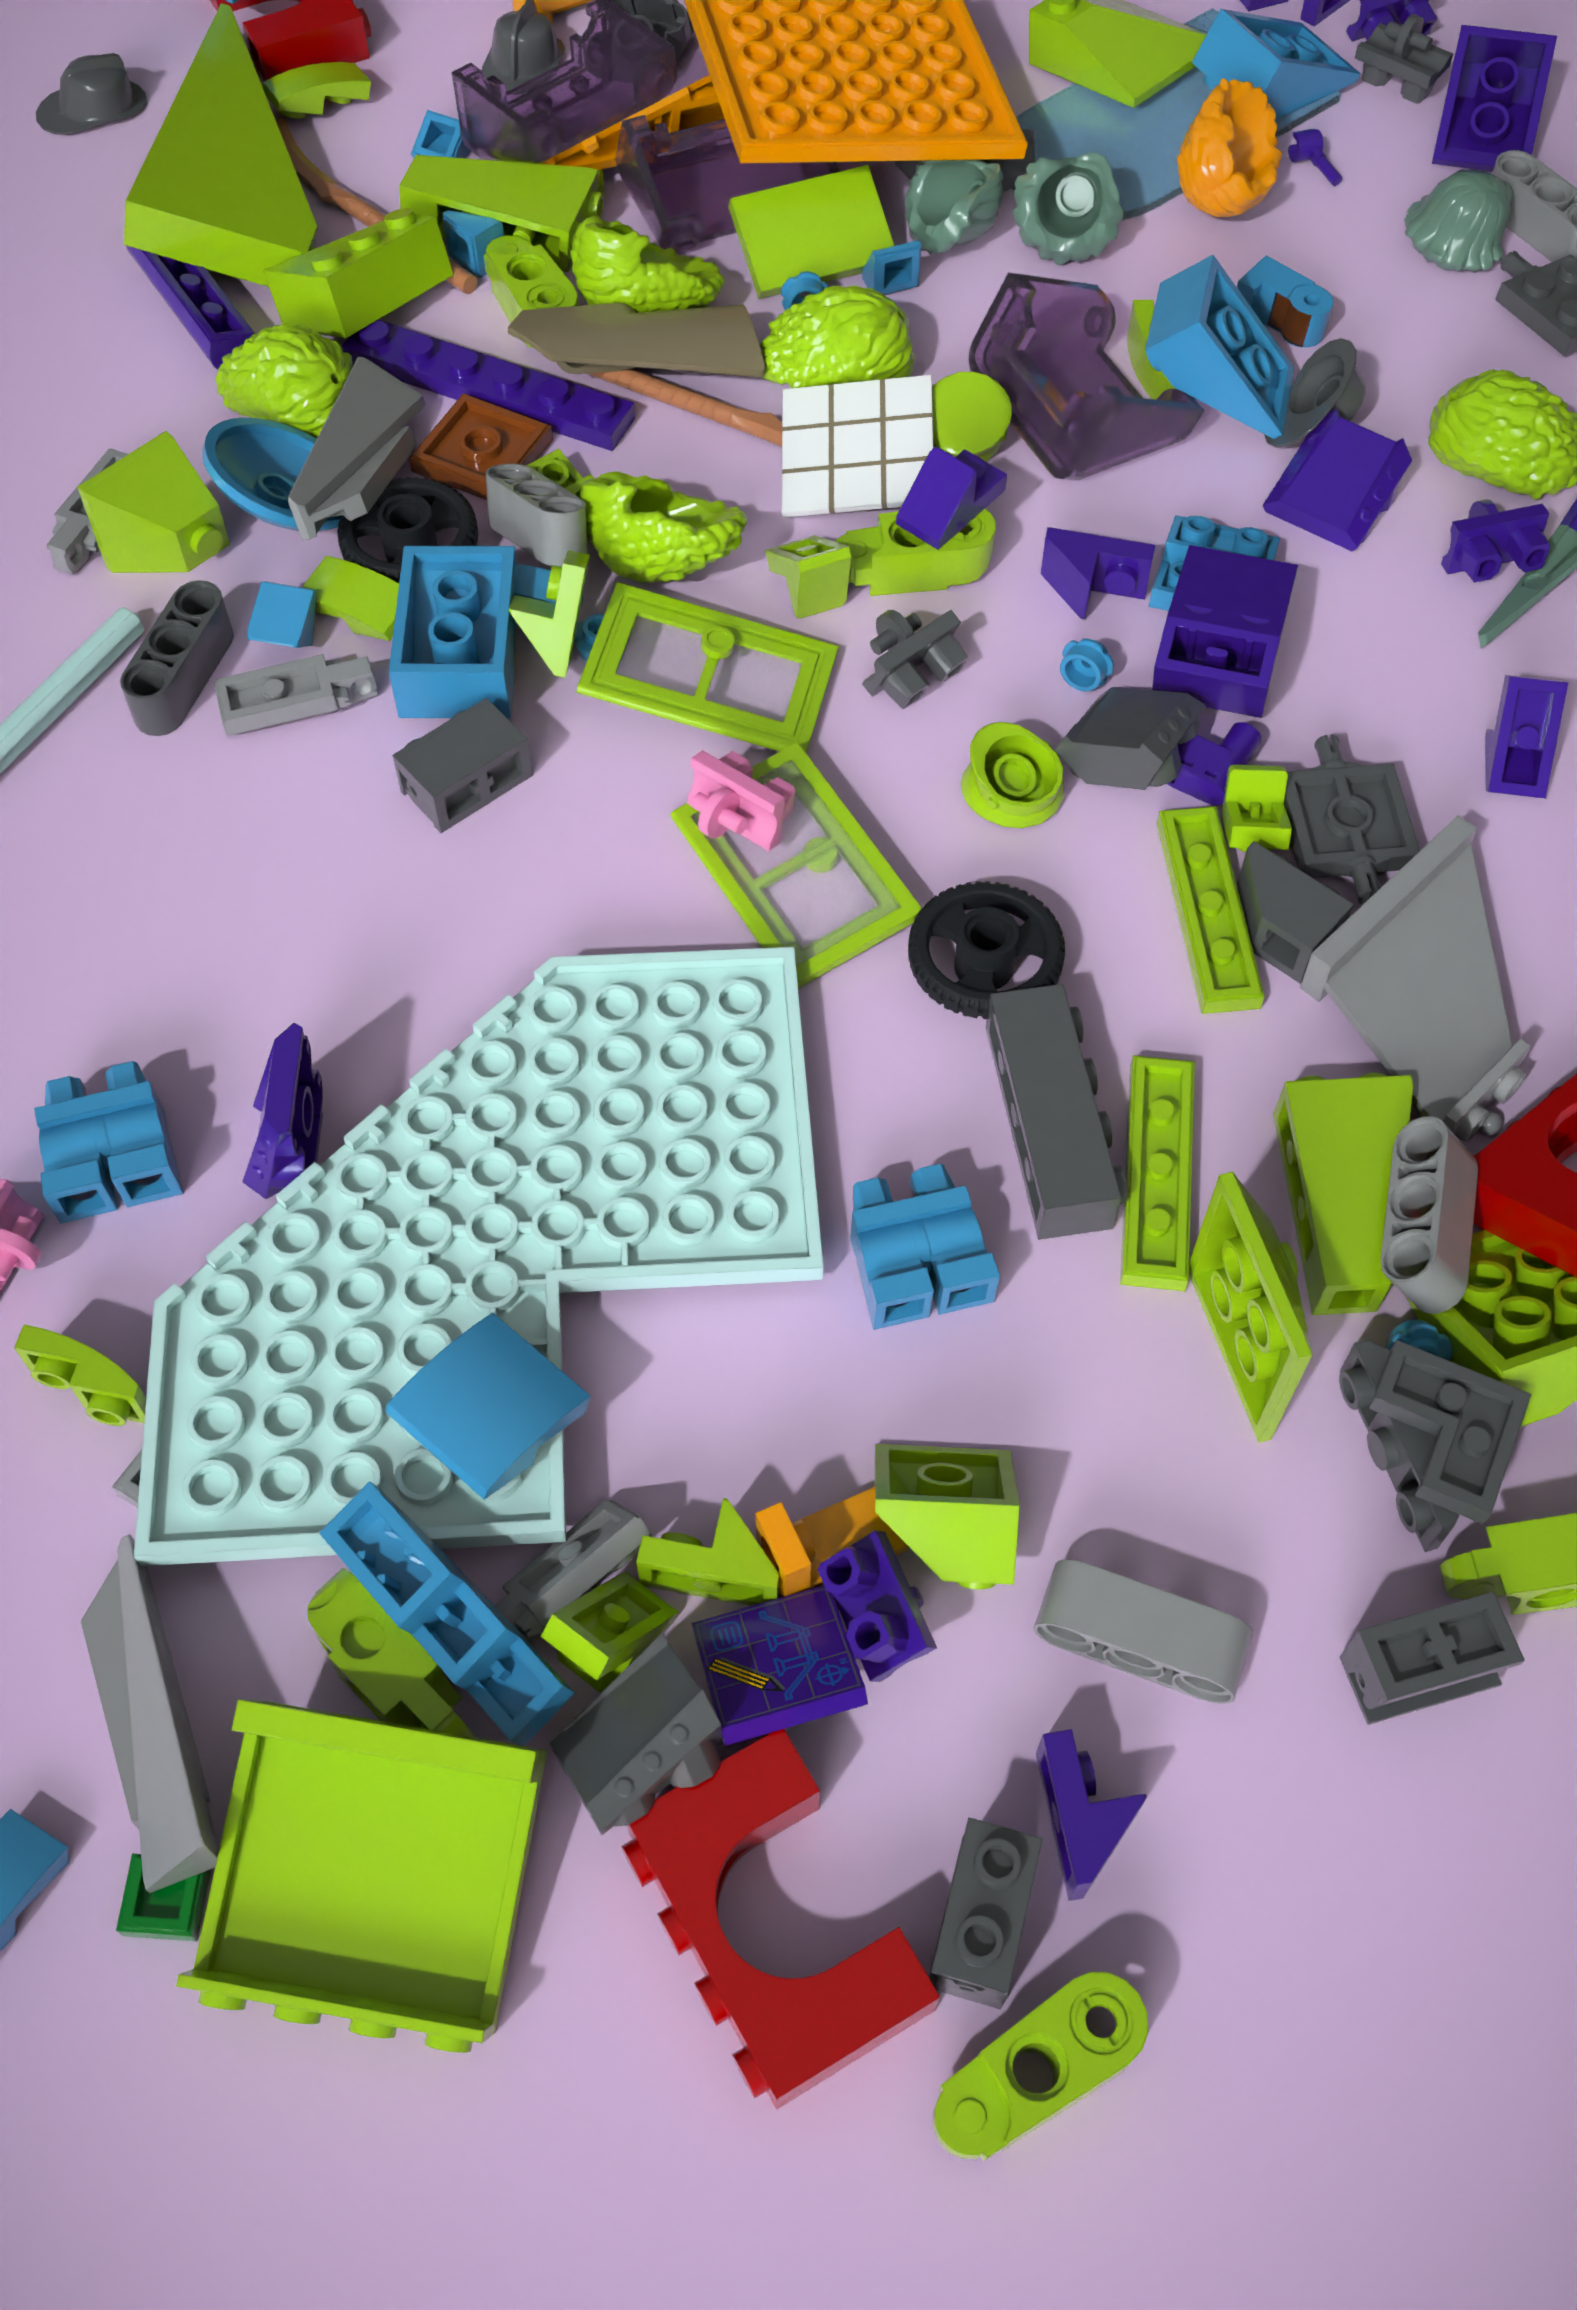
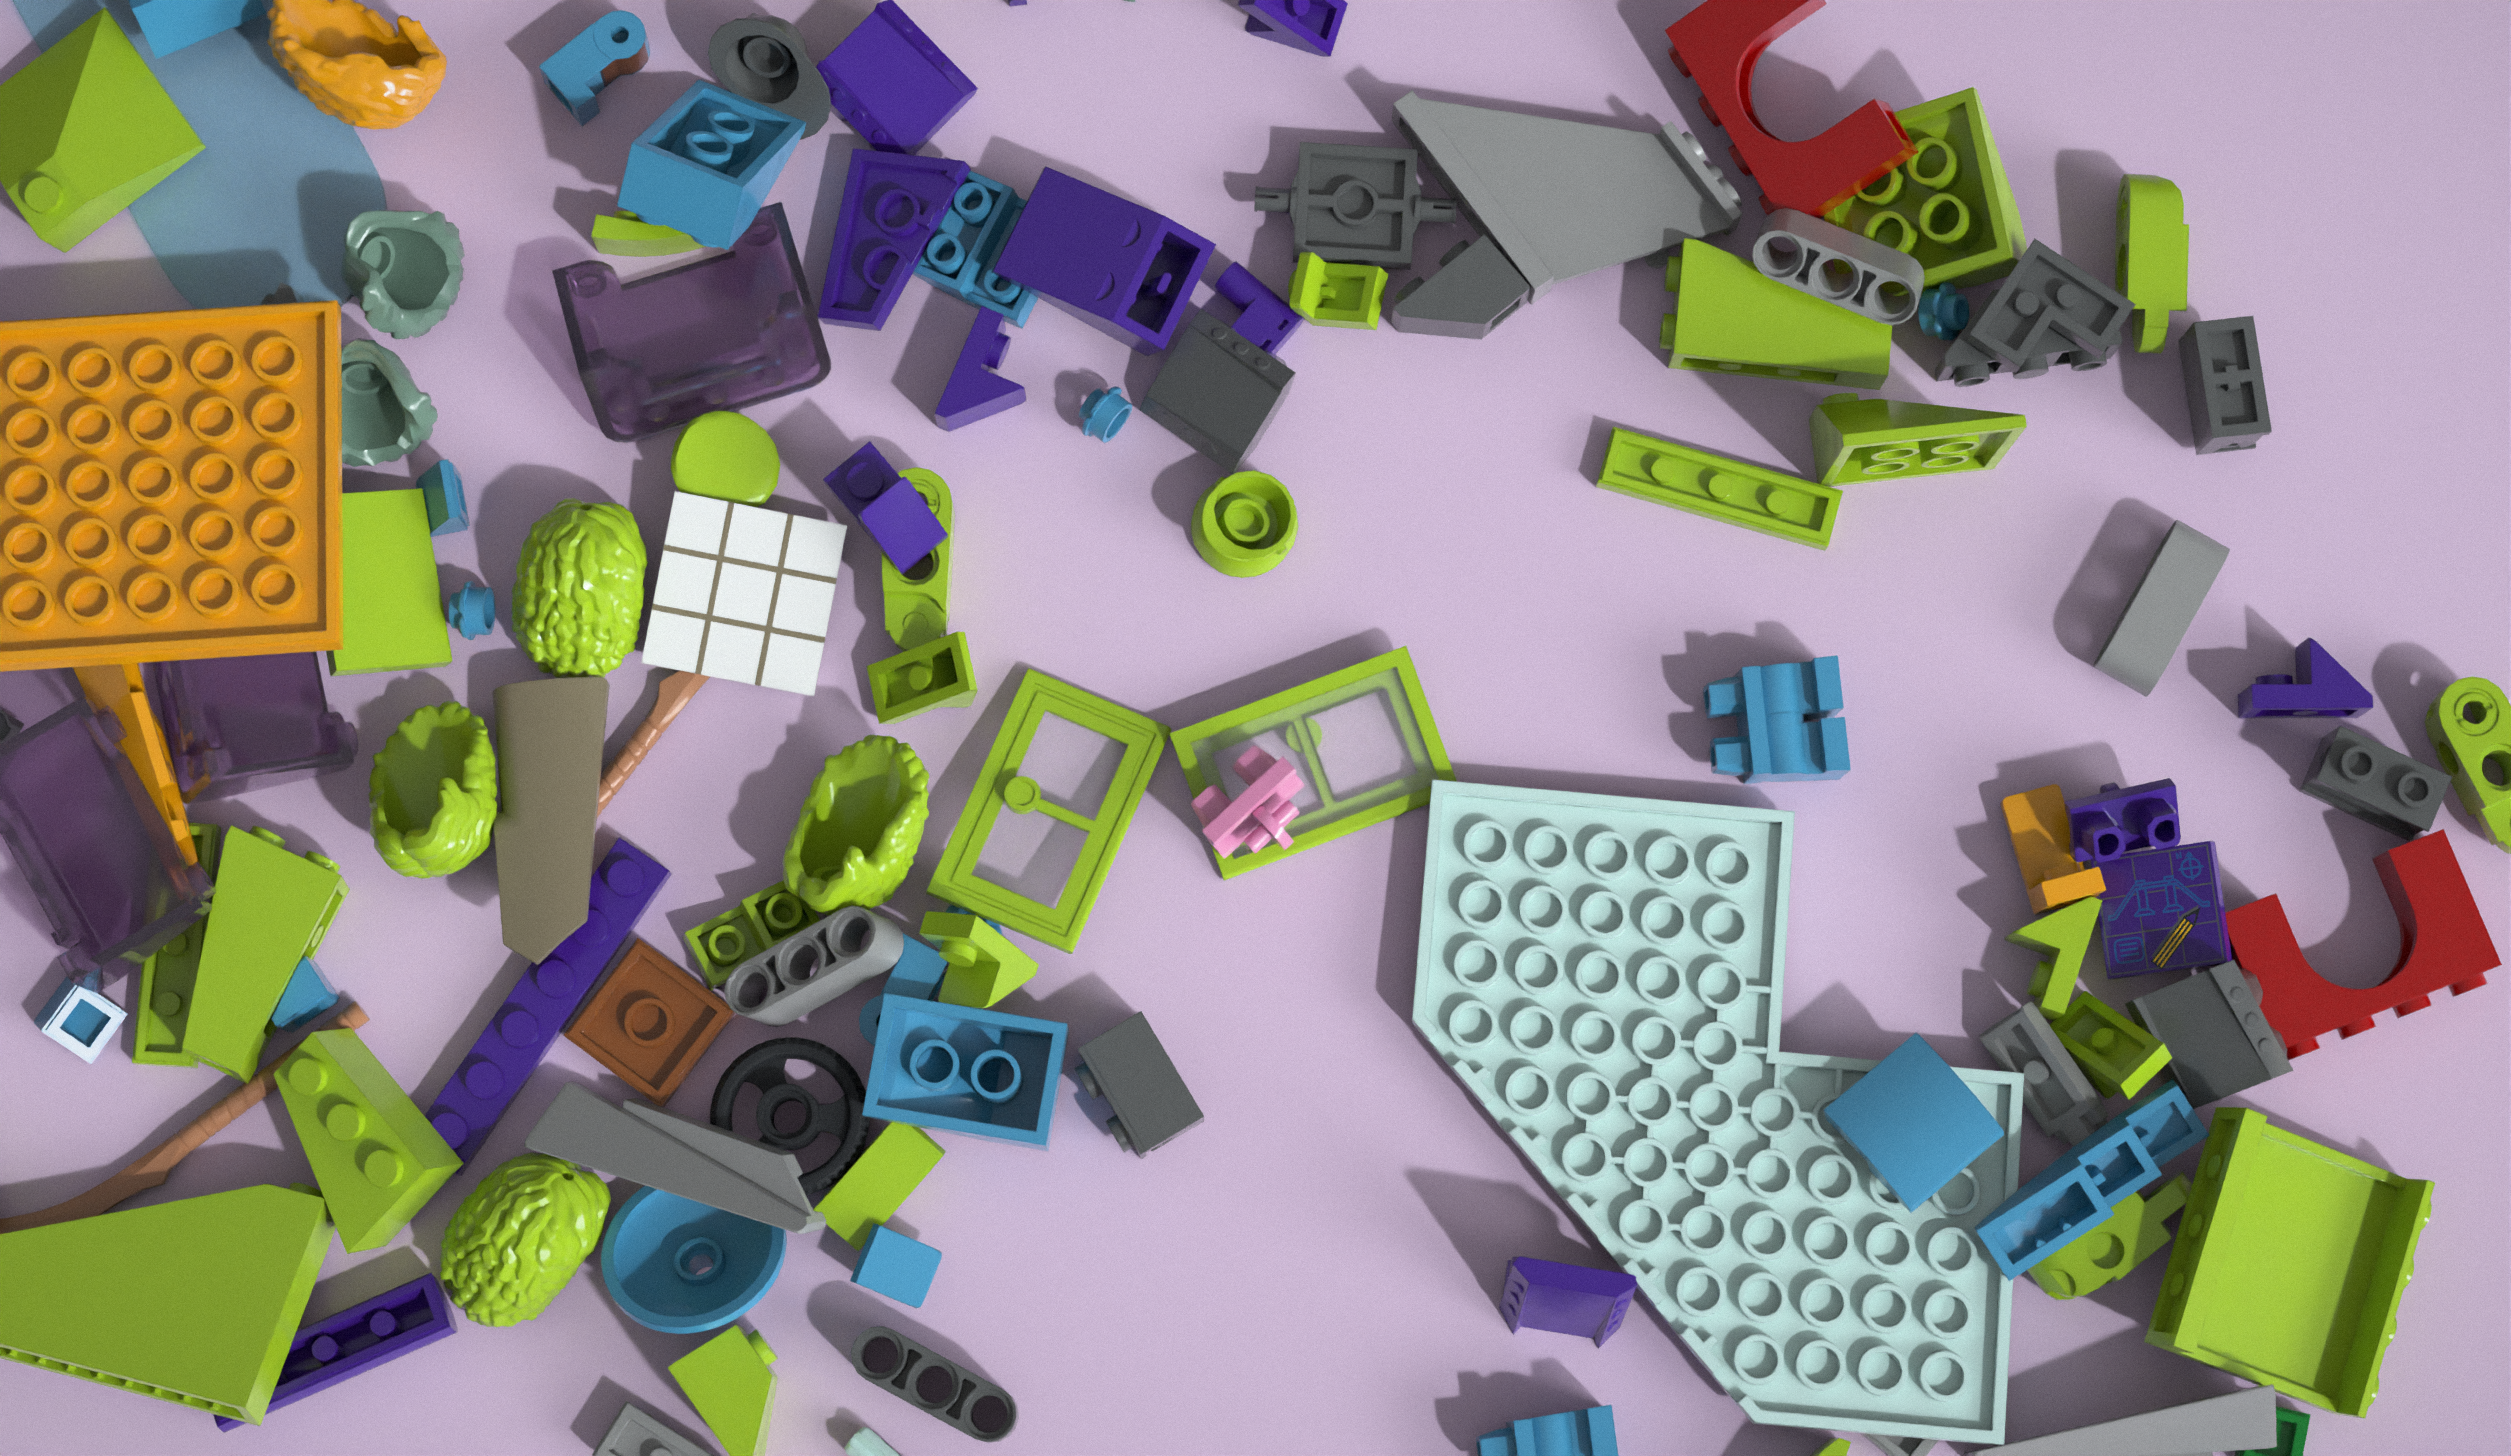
camera: 85 degrees left, 20 degrees up
(292, 692) = (1002, 1266): light grey hinge -> none
(526, 277) = (358, 948): lime piece -> none
(897, 668) = (1062, 596): dark grey hips -> none
(952, 1509) = (2032, 742): lime slope -> none
(984, 927) = (1509, 614): black wheel -> none
(1054, 1112) = (1653, 570): dark grey brick -> none
(1209, 910) = (1430, 367): lime tile -> none
(1221, 490) = (882, 232): none -> dark purple wing

